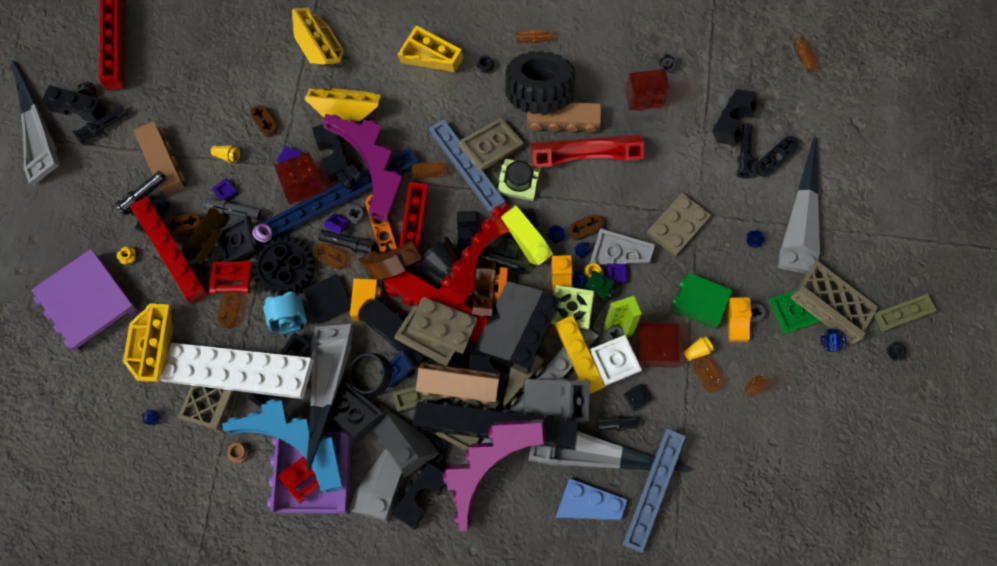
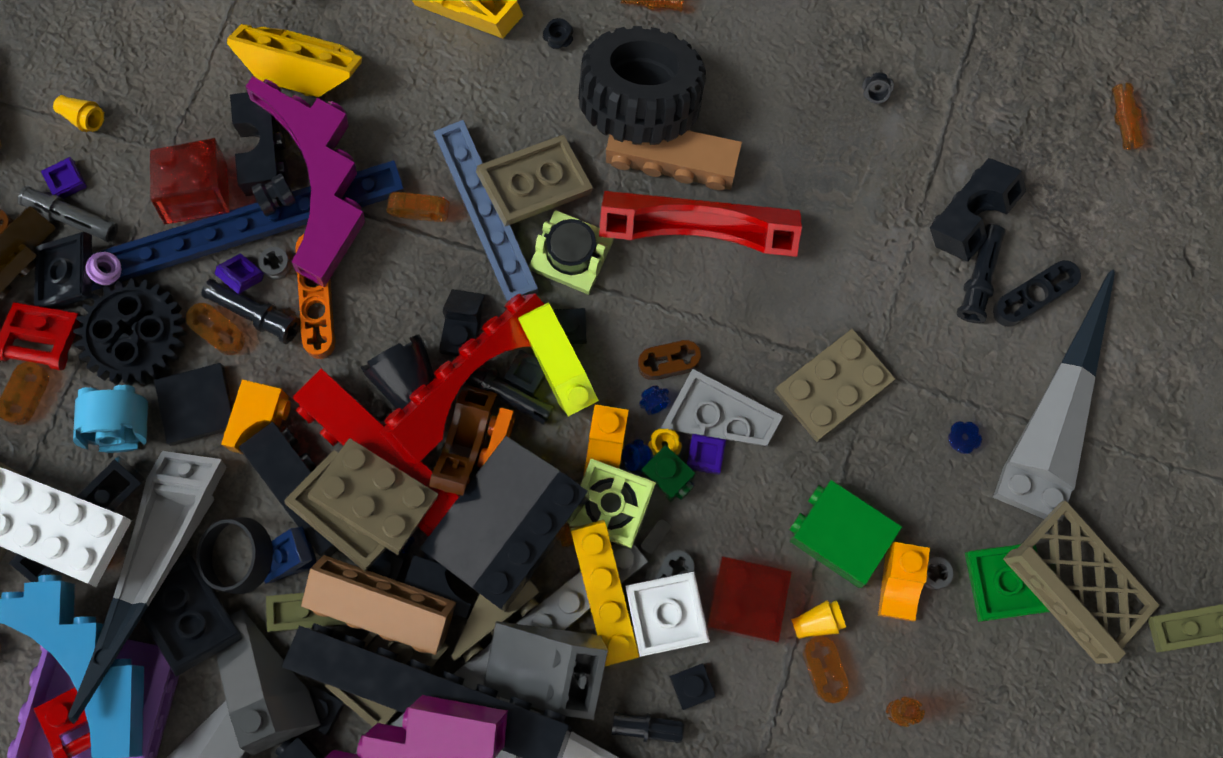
camera: 10 degrees right, 5 degrees up
(266, 119) = (151, 69): reddish brown beam -> none
(287, 153) = (183, 133): dark purple tile -> none
(390, 263) = (311, 365): reddish brown arch -> none
(415, 214) = (369, 296): red brick -> none
(556, 229) = (614, 354): clear blue plate -> none
(623, 314) = (695, 538): lime fence -> none
(647, 89) = (830, 131): clear red brick -> none
(833, 340) = (1064, 652): clear blue gear -> none
(896, 351) = (1175, 694): black plate -> none

